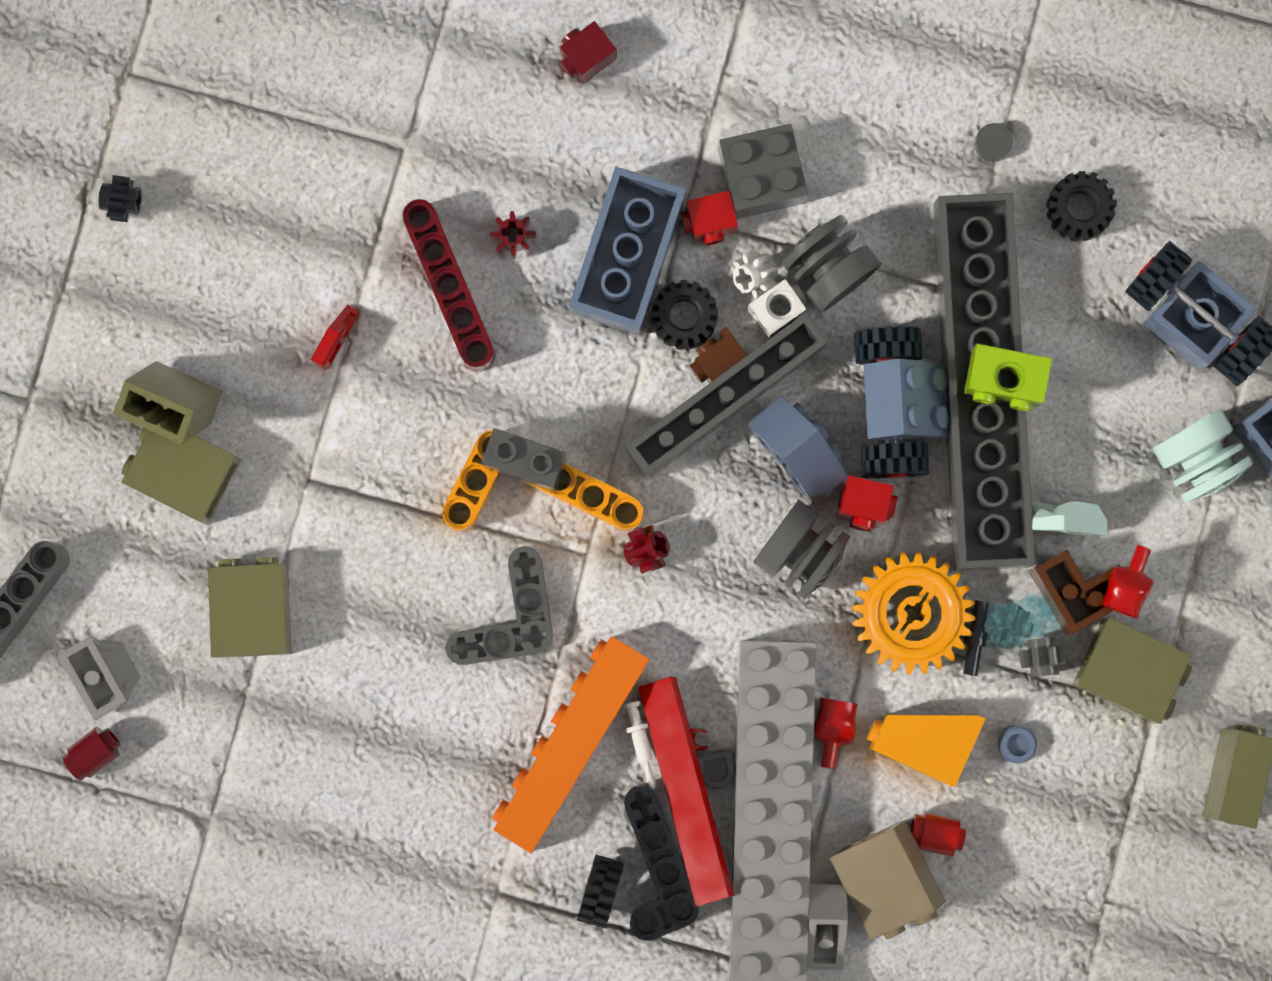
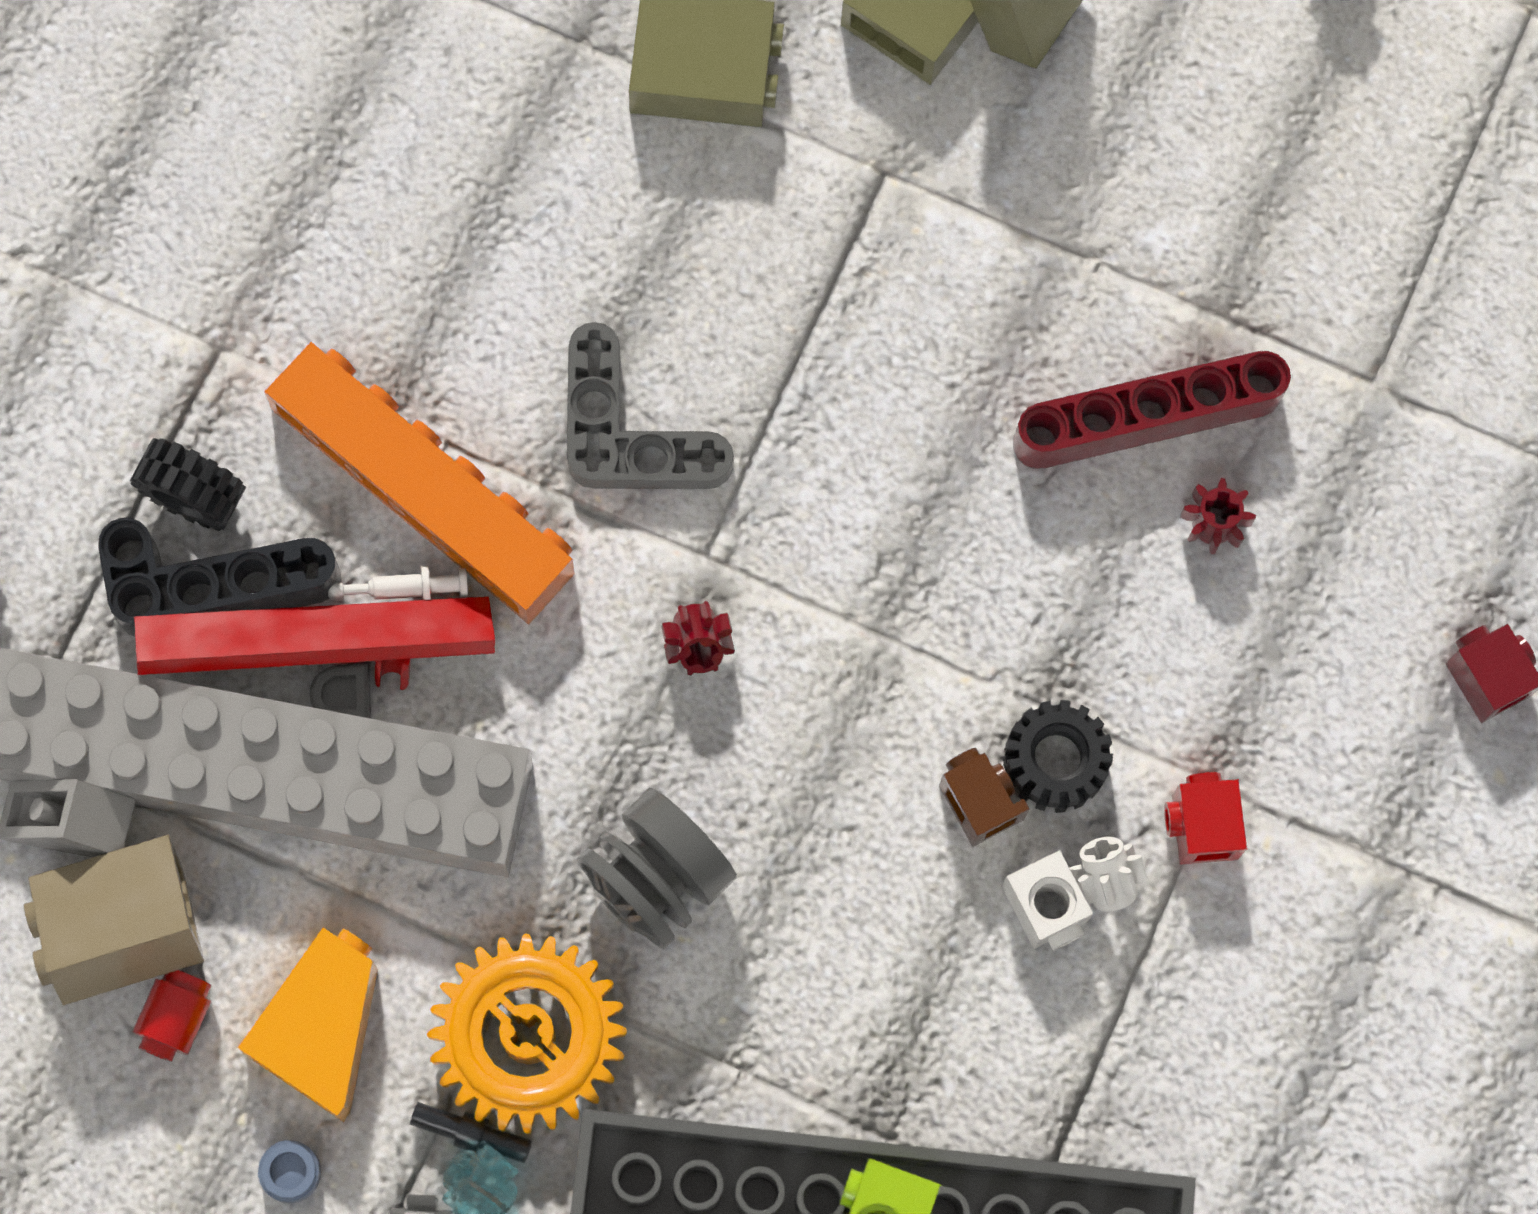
camera: 90 degrees right, 10 degrees down
(334, 338) = (1093, 234): red tile -> none
(524, 459) = (862, 462): dark grey brick -> none
(572, 495) = (832, 497): light orange beam -> none
(627, 250) = (1170, 679): sand blue brick -> none
(726, 396) = (918, 794): dark grey brick -> none
(763, 171) = (1272, 911): dark grey brick -> none
(800, 448) = (817, 893): sand blue brick -> none
(831, 263) = (1116, 986): dark grey wheel -> none
(834, 727) = (370, 883): red piece -> none
(866, 503) = (712, 980): red brick -> none
(902, 401) = (869, 1062): brick -> none

